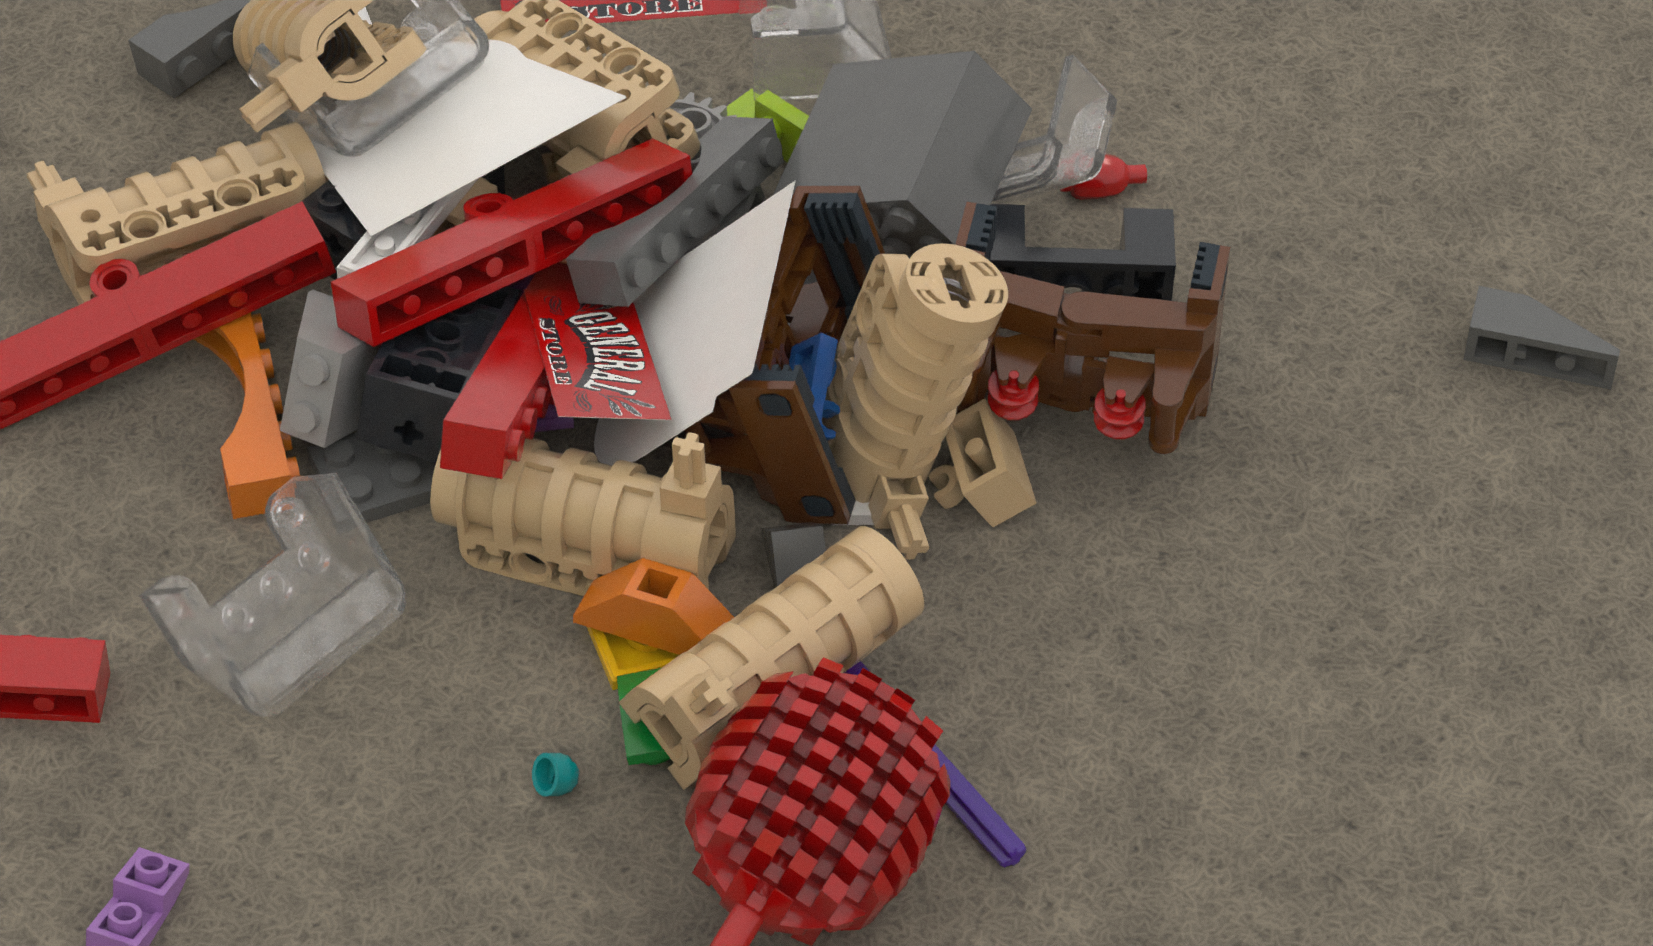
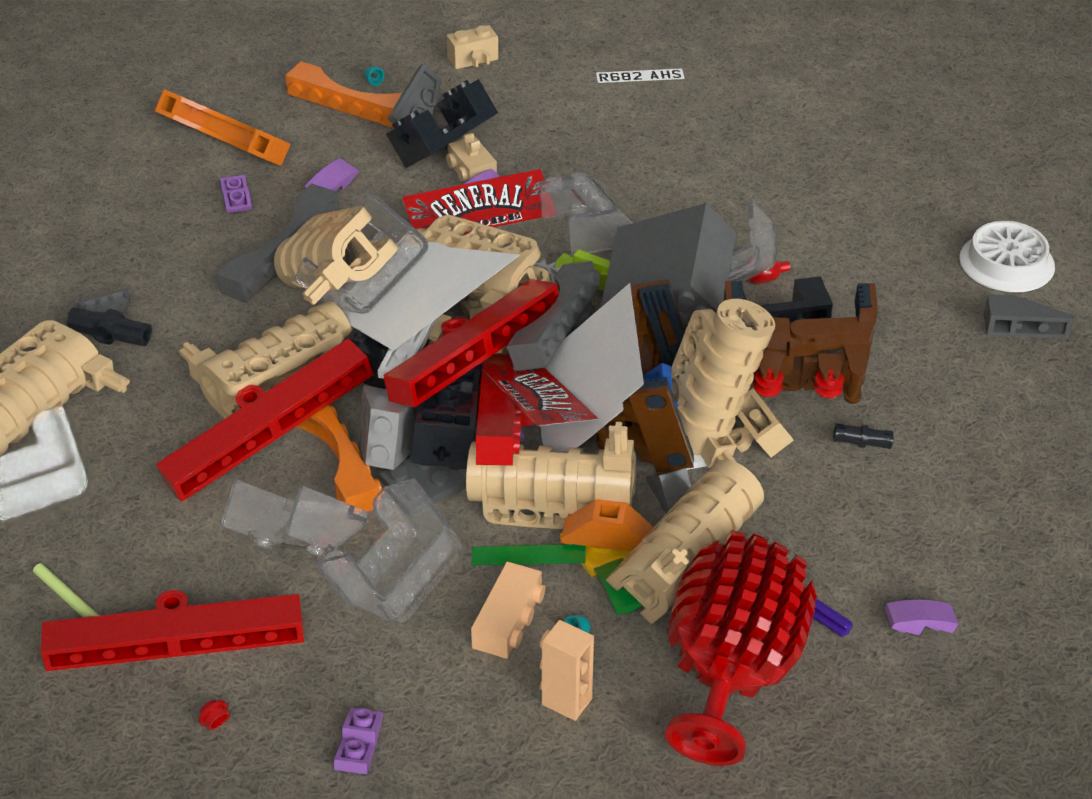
camera: 10 degrees left, 5 degrees down
(121, 508) = (307, 522): none -> clear windscreen
(446, 725) = (507, 610): none -> light nougat brick
(498, 847) = (567, 669): none -> light nougat brick
(515, 634) = (528, 554): none -> green sticker
(1134, 849) = (914, 615): none -> medium lavender slope
(1165, 514) = (863, 436): none -> black pin
(1571, 217) = (1008, 257): none -> white piece

